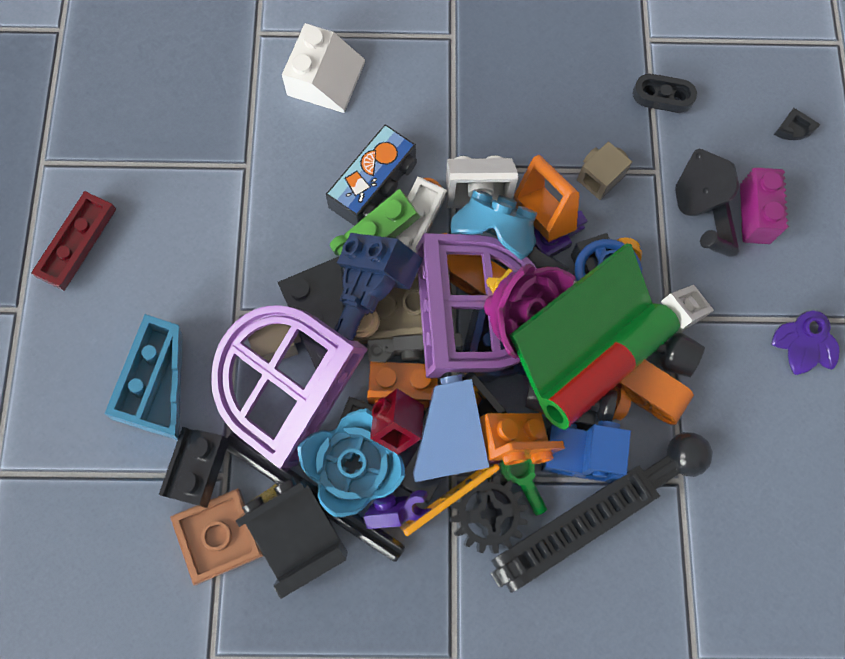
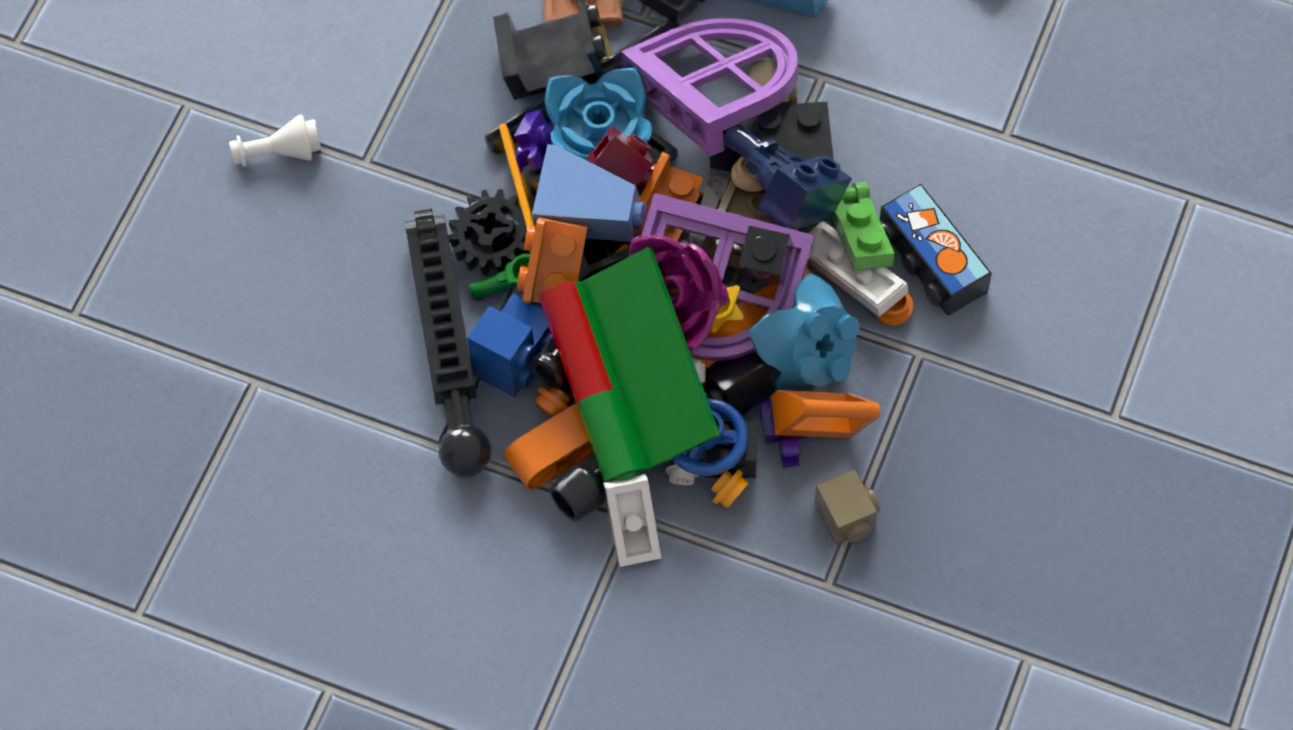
camera: 115 degrees right, 10 degrees down
(322, 69) = (1103, 242): white slope -> none
(465, 254) = (766, 255): none -> black brick
(490, 175) = (883, 353): white slope -> none
(663, 91) = (929, 631): black plate -> none
(710, 185) = (759, 603): black piece -> none
(763, 205) = (725, 668): magenta brick -> none
(805, 347) = (531, 645): dark purple plate -> none

